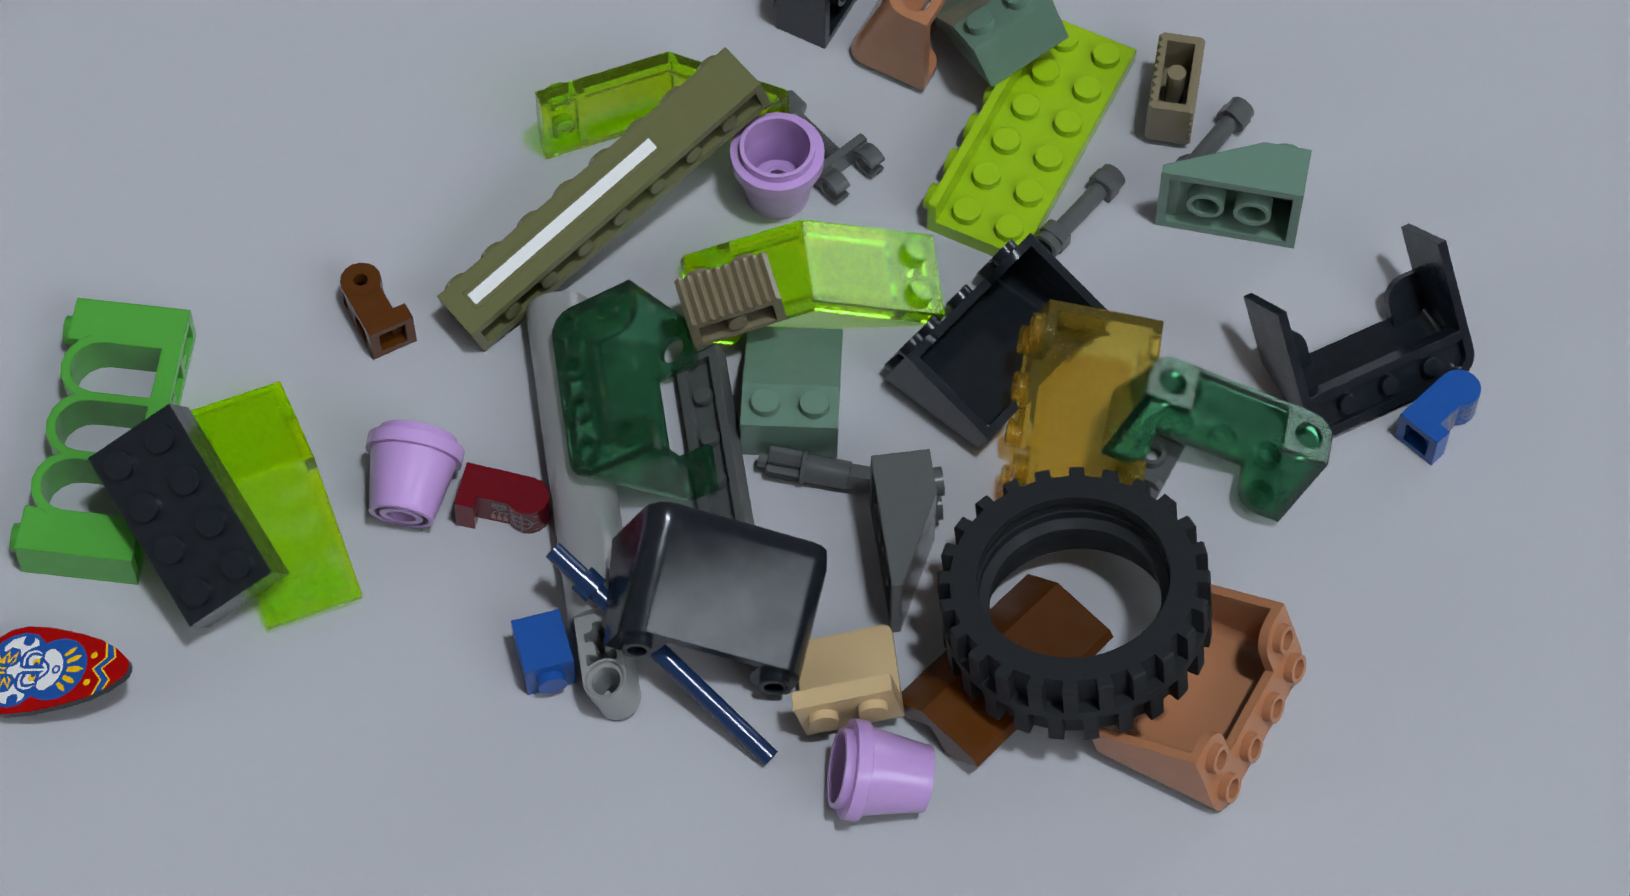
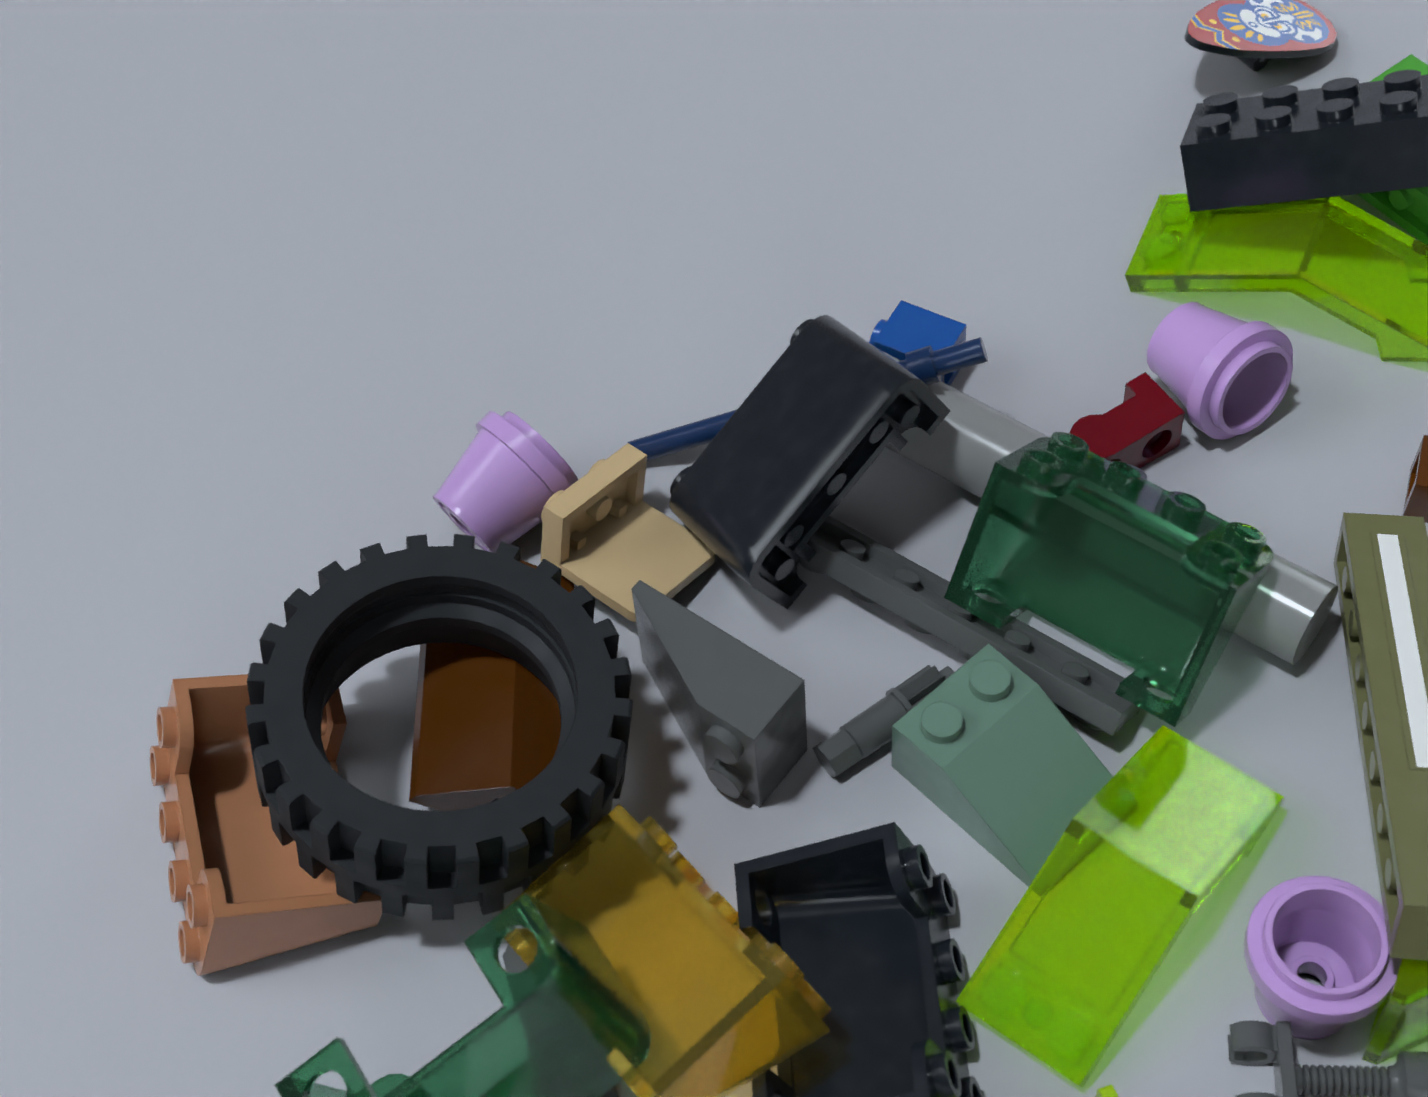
camera: 140 degrees right, 5 degrees down
(730, 299) = (1147, 734): dark tan brick -> none

